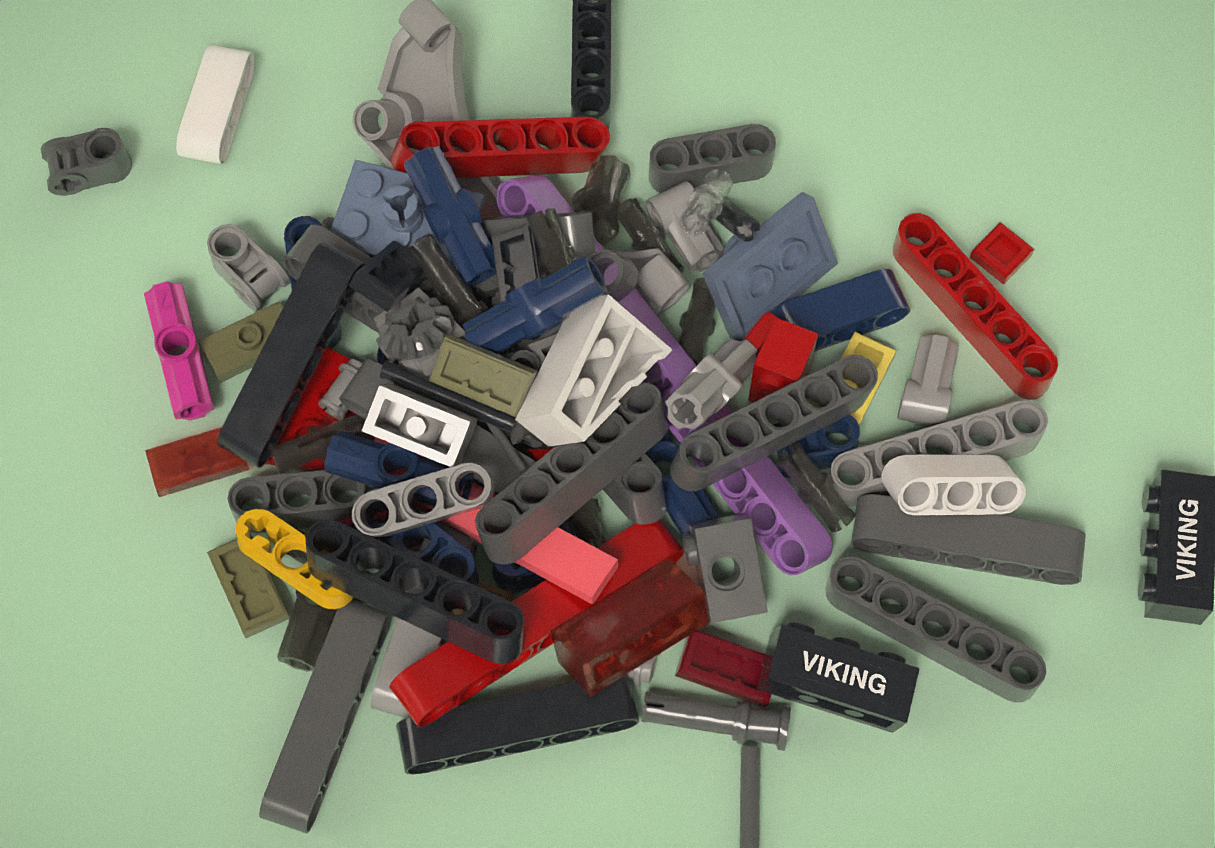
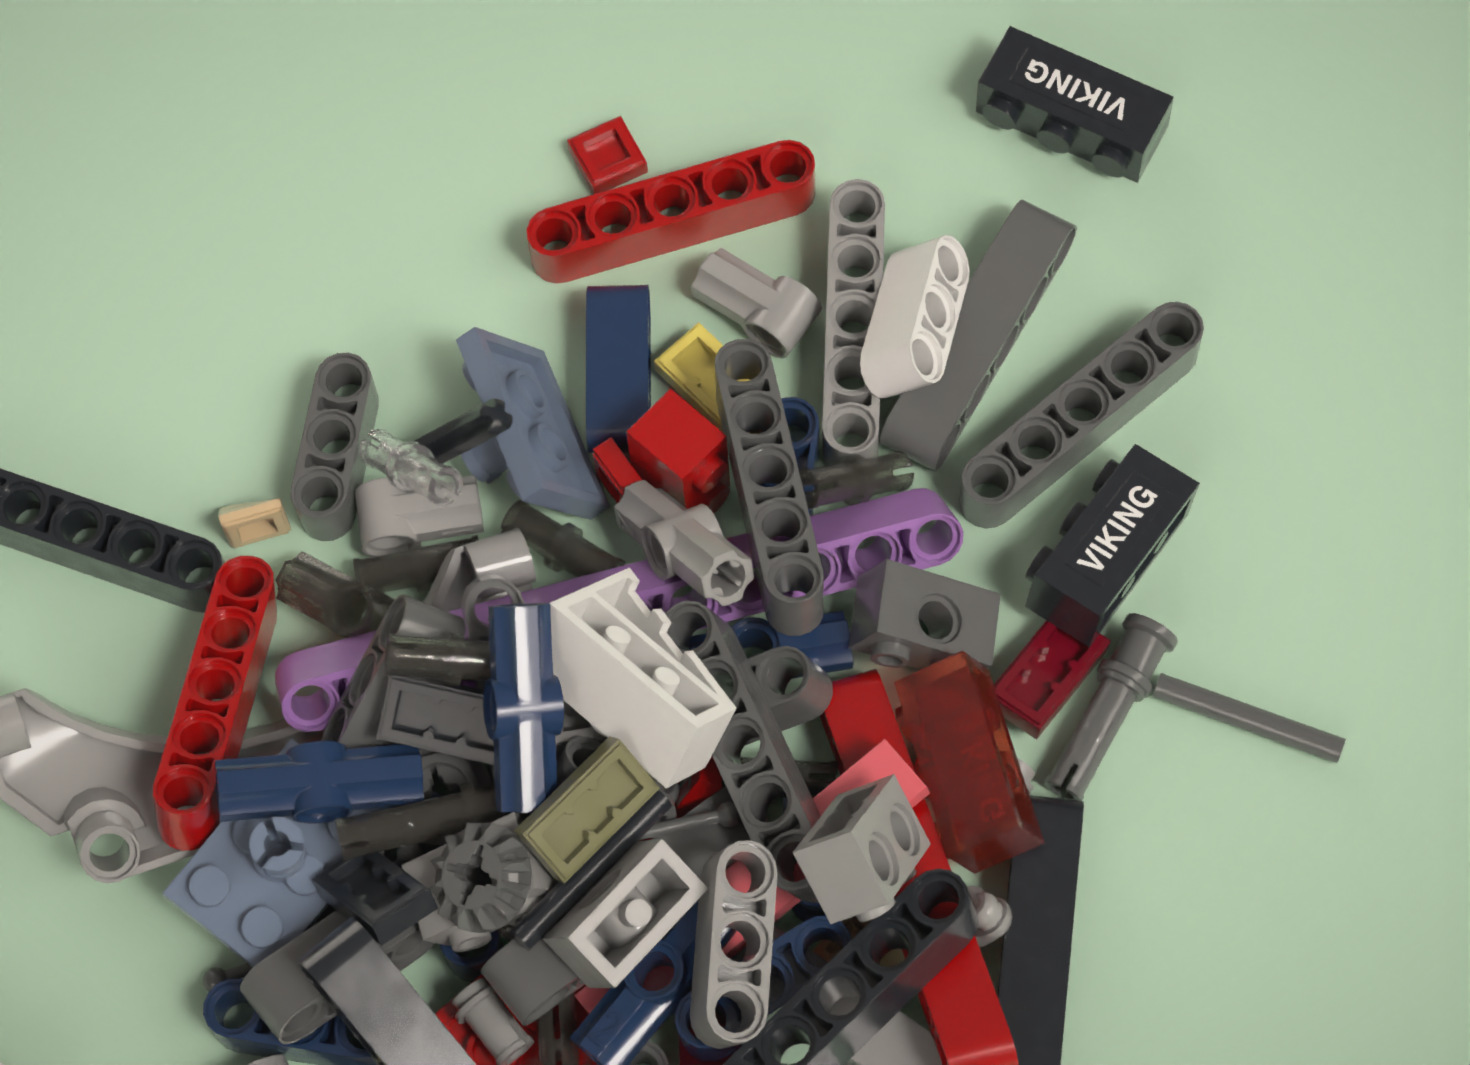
camera: 65 degrees left, 0 degrees up
(517, 560) = (862, 851): none -> light grey brick
(529, 676) = (992, 913): none -> light grey arm
(639, 129) = (253, 521): none -> tan slope

